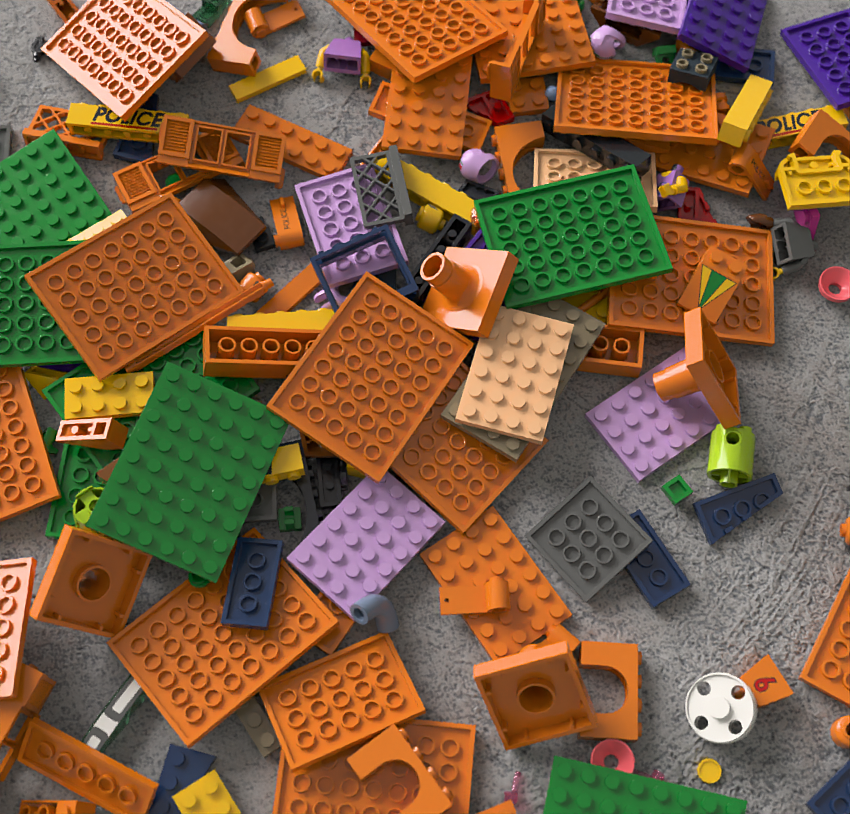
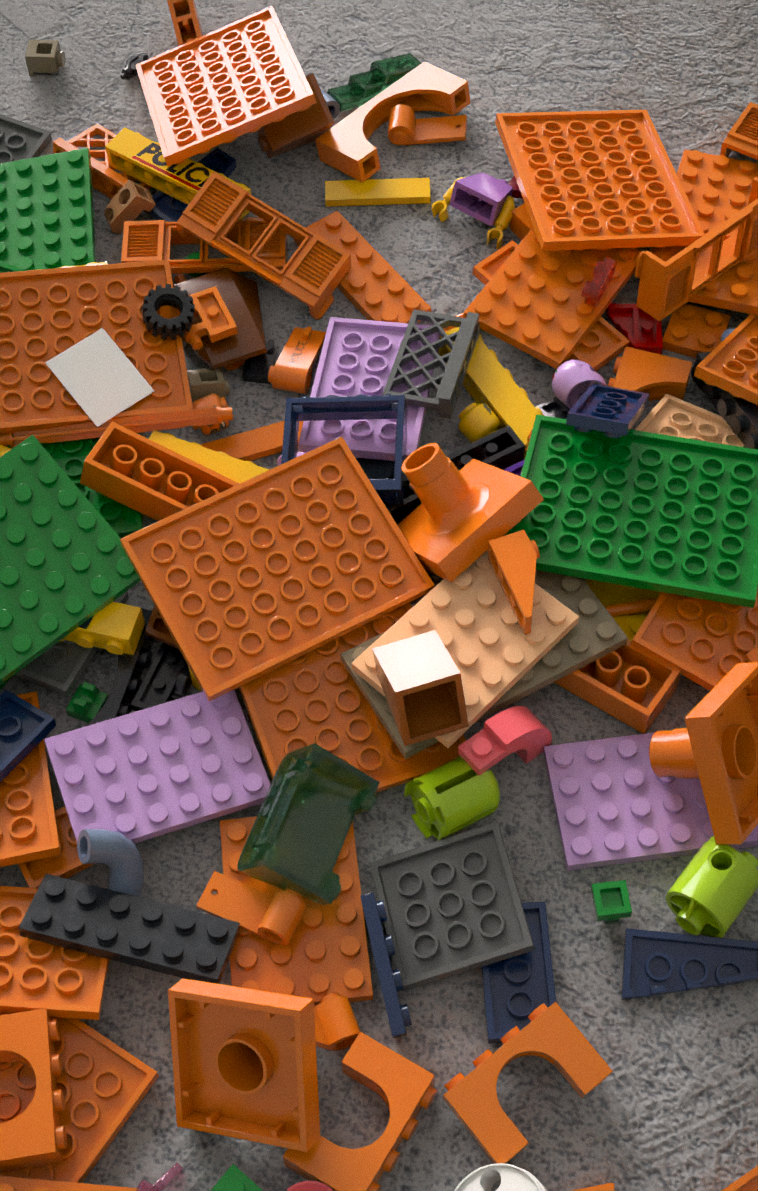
camera: 30 degrees right, 10 degrees down
(105, 160) = (127, 205): none -> medium nougat leg
(172, 296) = (99, 377): none -> white sticker
(193, 219) = (168, 297): none -> black tyre
(220, 218) = (213, 317): none -> orange plate
(410, 649) = (130, 929): none -> black plate
(459, 96) = (602, 275): none -> clear red plate
(478, 532) = (306, 823): none -> clear green windscreen
(512, 414) = (421, 687): none -> dark orange slope
(516, 178) = (607, 410): none -> dark blue plate
(525, 312) = (514, 565): none -> orange slope
(538, 476) = (452, 798): none -> lime cylinder
(567, 423) = (503, 734): none -> coral arch
(571, 594) = (389, 979): none -> dark blue wing
(666, 643) = (547, 1036): none -> orange arch

